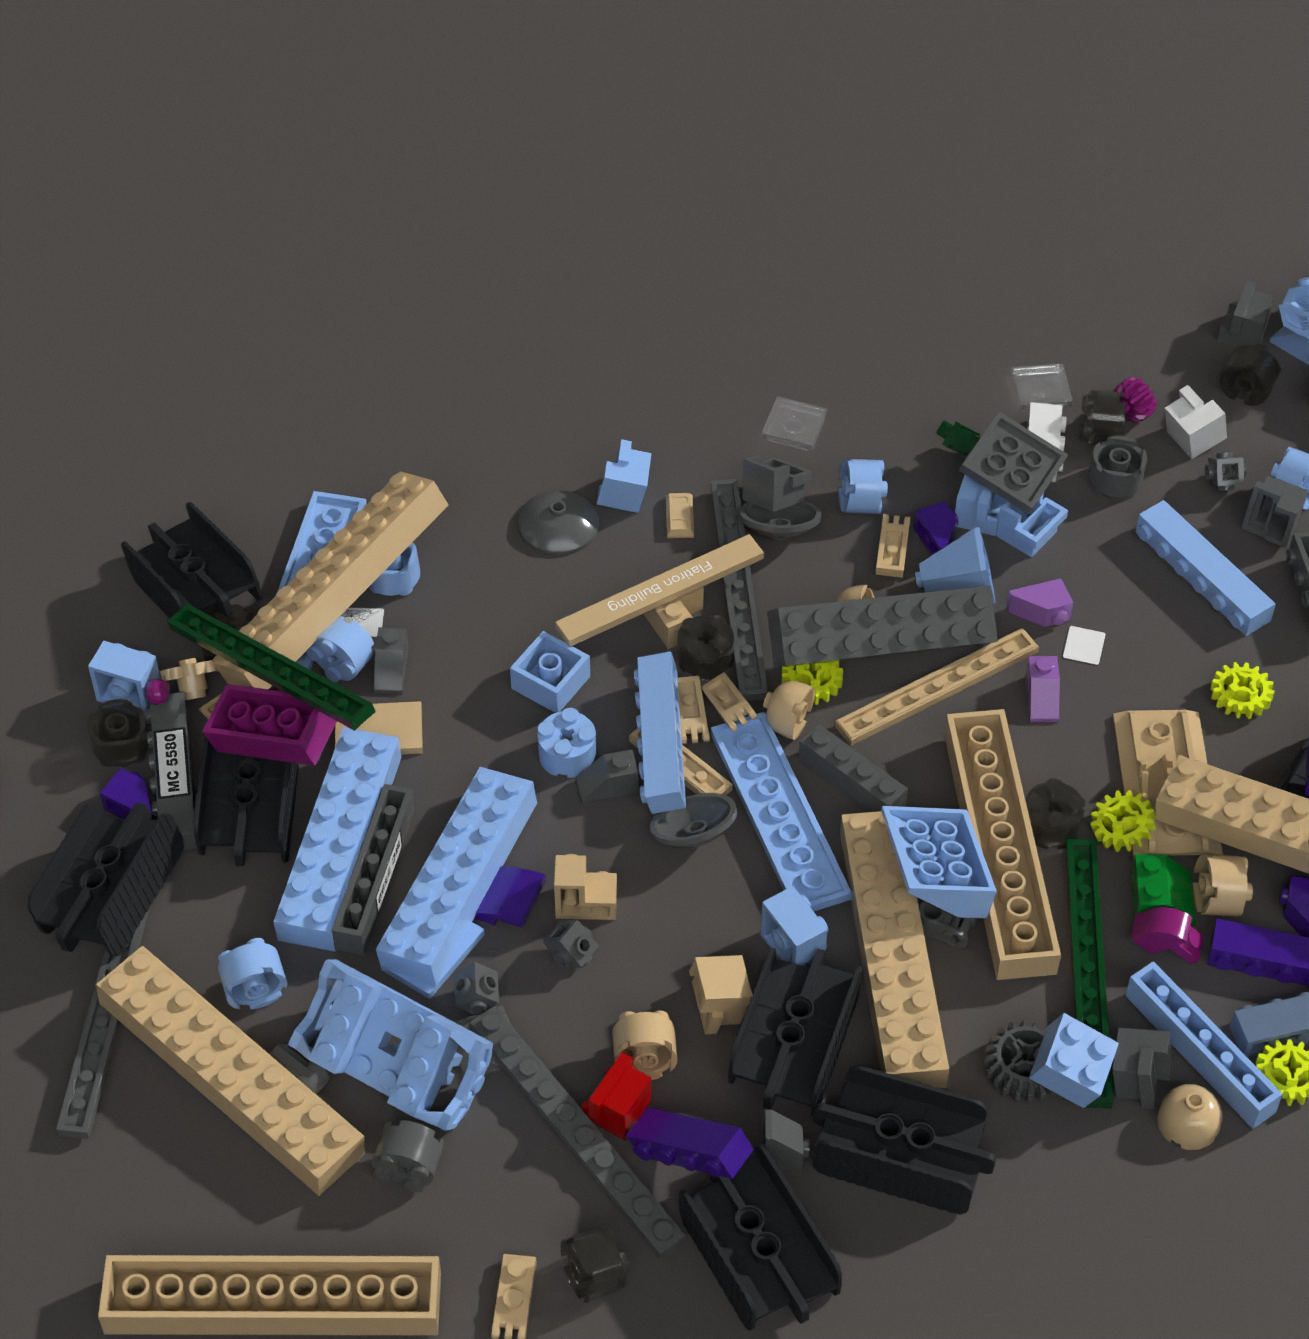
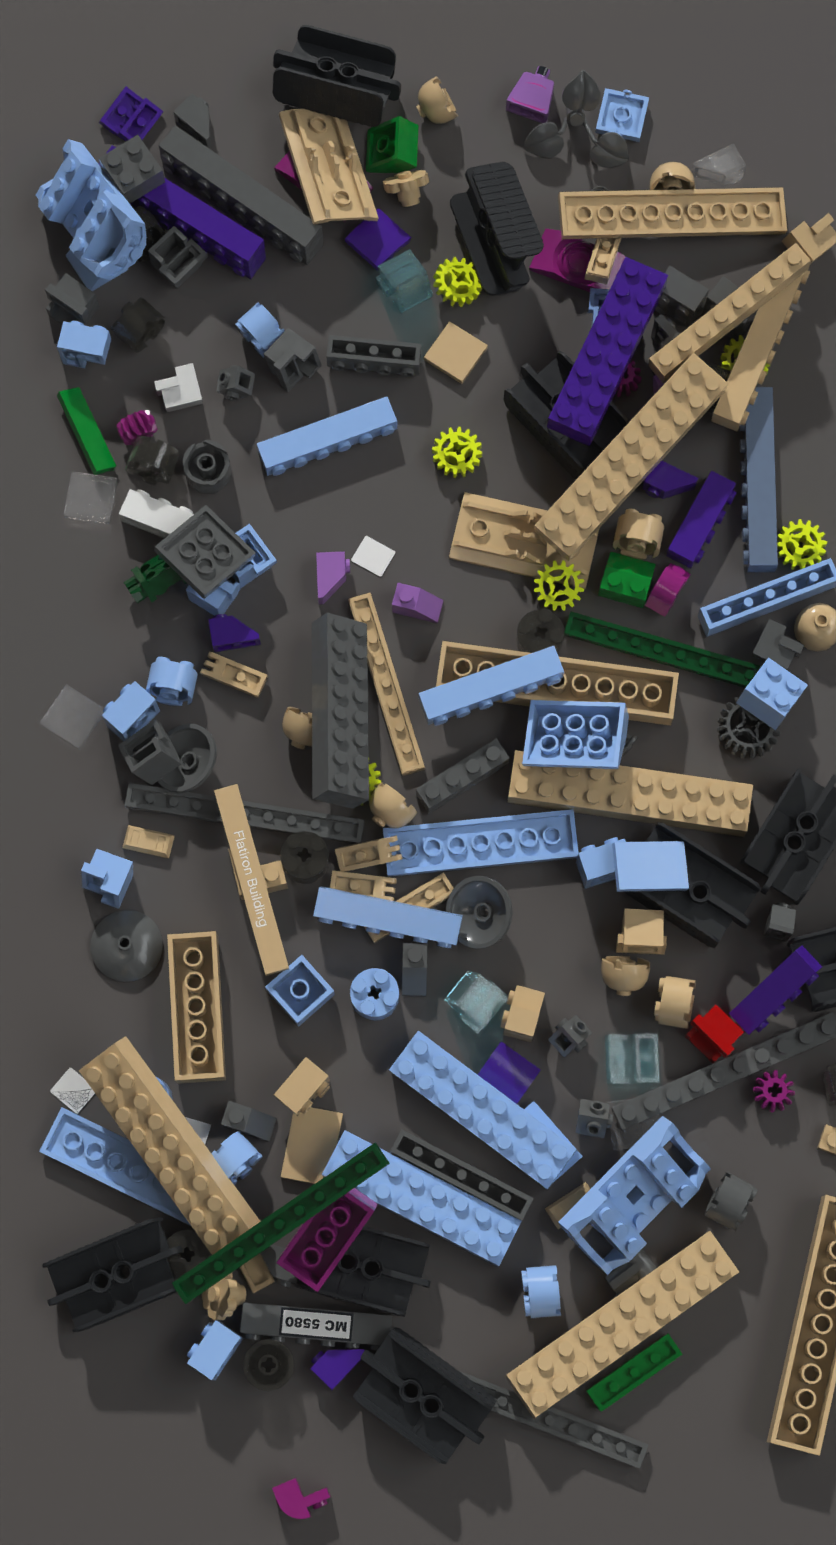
camera: 75 degrees left, 25 degrees up
(157, 691) = (246, 1325): magenta hinge -> none
(174, 1103) = (634, 1372): none -> green plate
(443, 689) = (303, 1085): none -> tan brick
(505, 585) = (196, 1007): none -> tan brick
(563, 1023) = (632, 1059): none -> clear light blue slope
(575, 1186) = (768, 1083): none -> magenta gear
(589, 836) = (476, 1000): none -> clear light blue plate
(664, 985) = (624, 974): none -> tan cylinder
(801, 963) = (650, 866): none -> light blue tile
(816, 452) = (130, 711): none -> light blue brick
(957, 566) = (282, 631): light blue slope -> none
(967, 759) = (491, 685): none -> light blue brick
(1113, 365) = (86, 430): none -> green tile
(1203, 329) = (83, 344): none -> light blue brick

